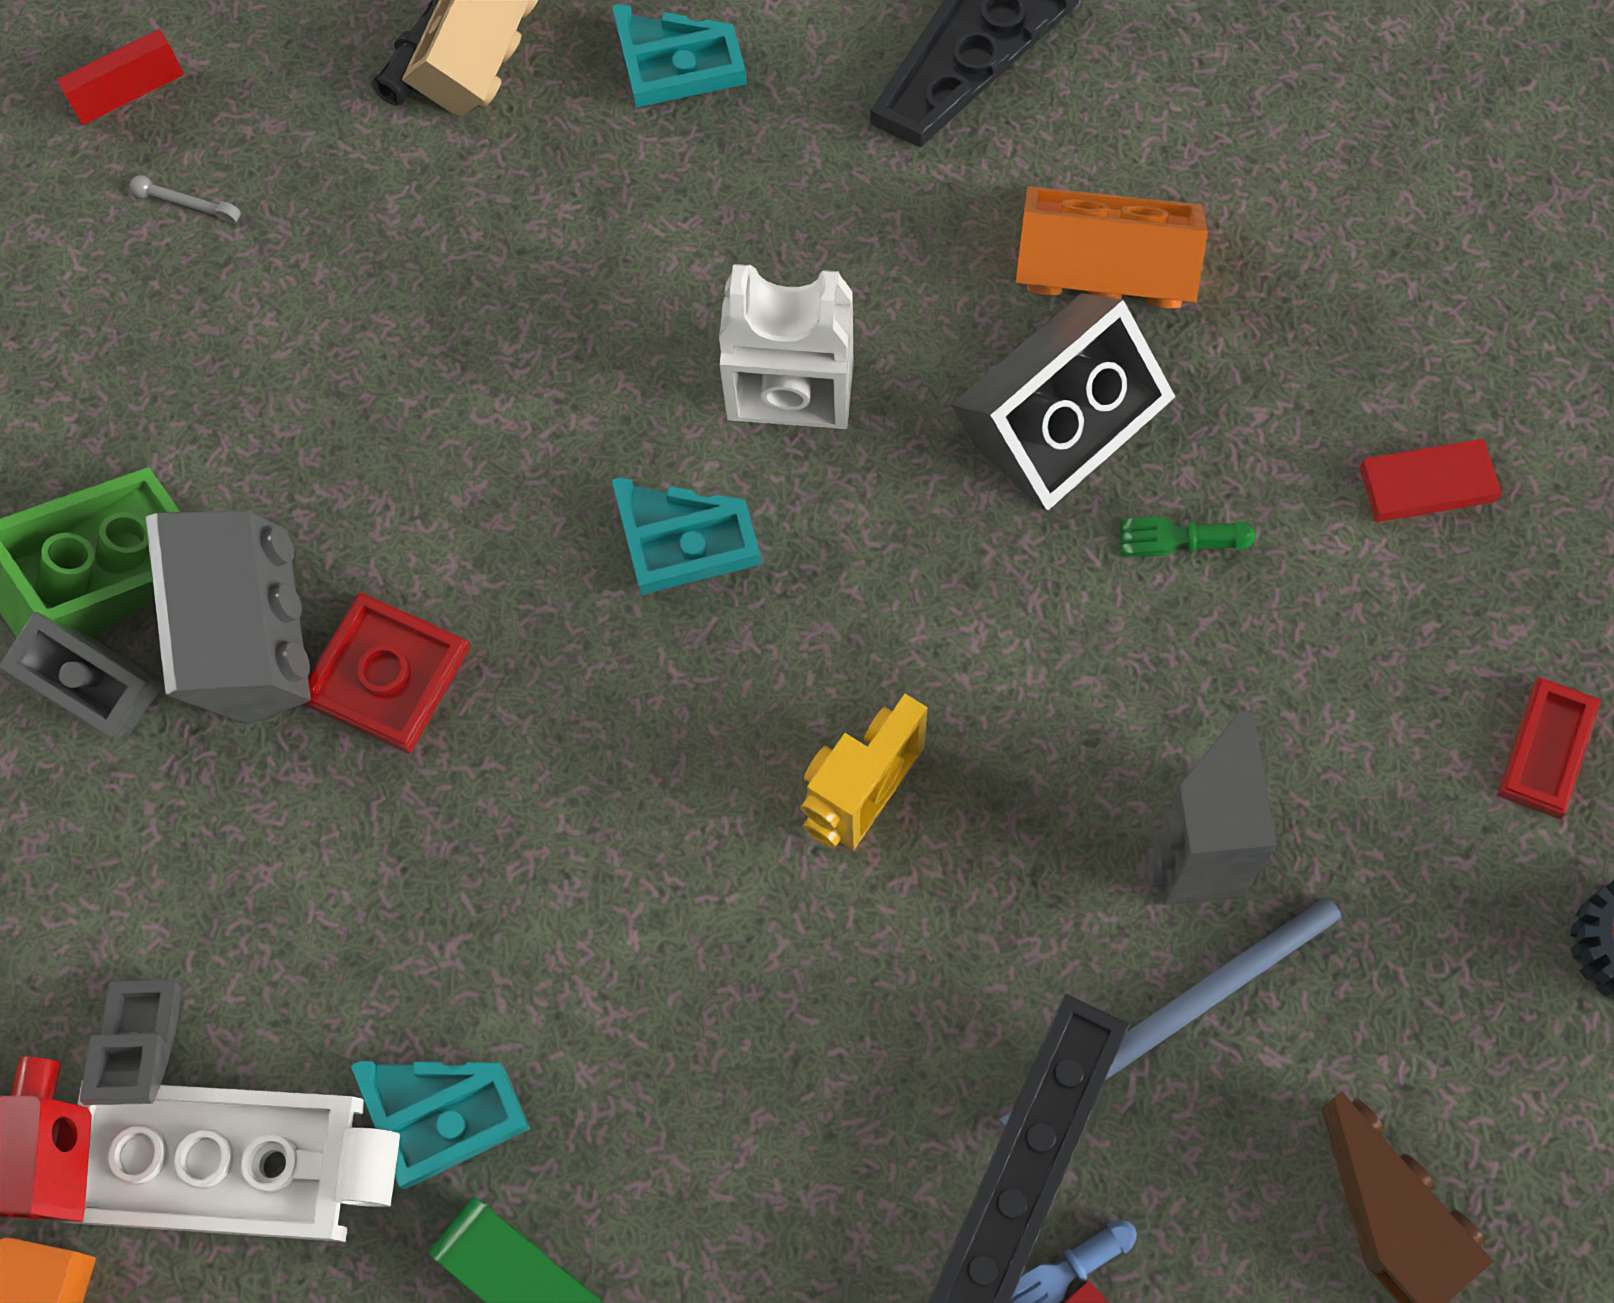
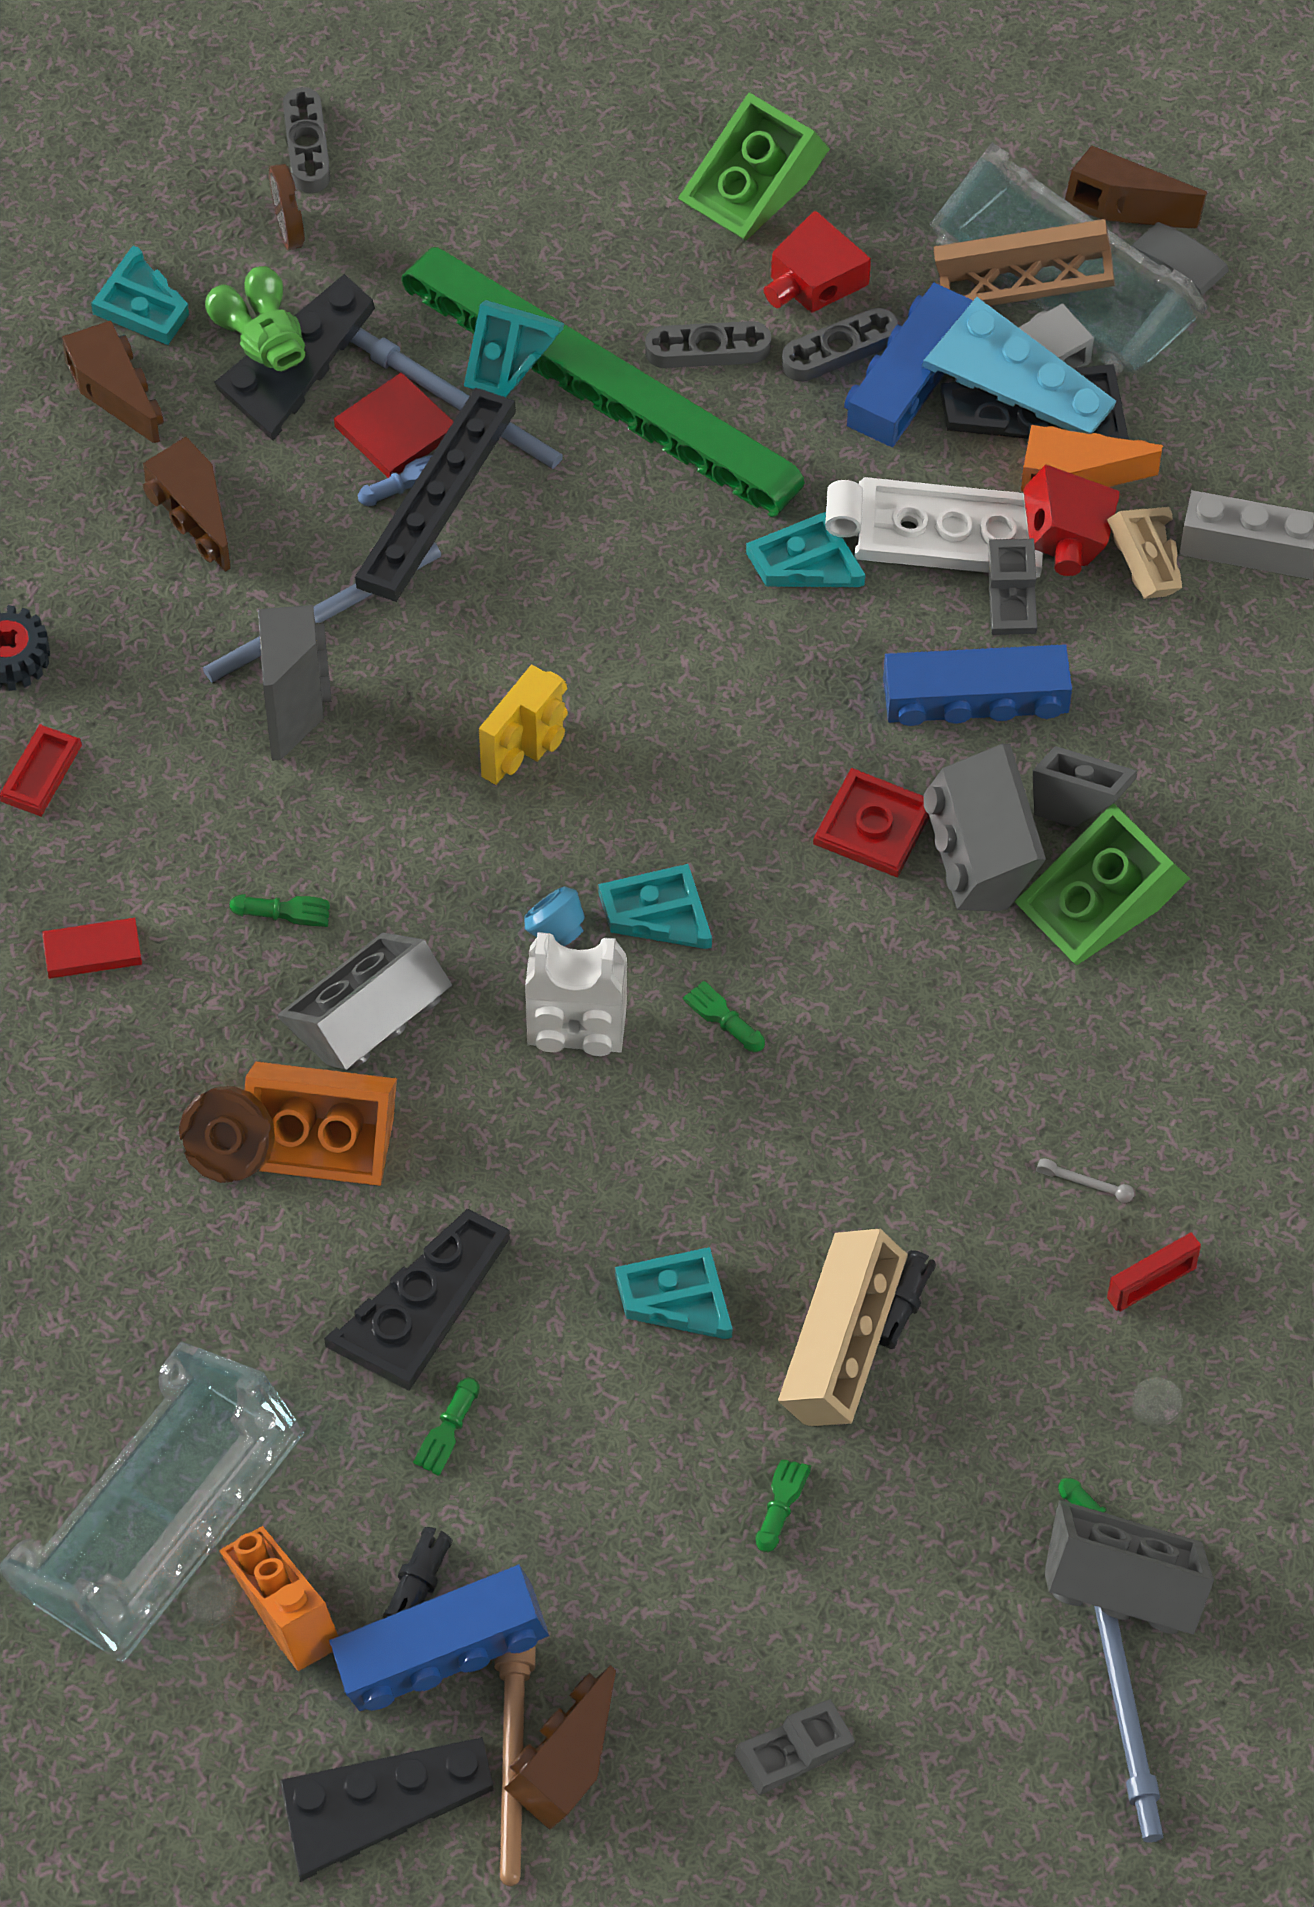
camera: 175 degrees right, 10 degrees down
(208, 873) = (977, 684): none -> blue brick
(615, 407) = (714, 1008): none -> green piece
(819, 510) = (557, 914): none -> dark azure cone
(1222, 205) = (227, 1134): none -> reddish brown tile

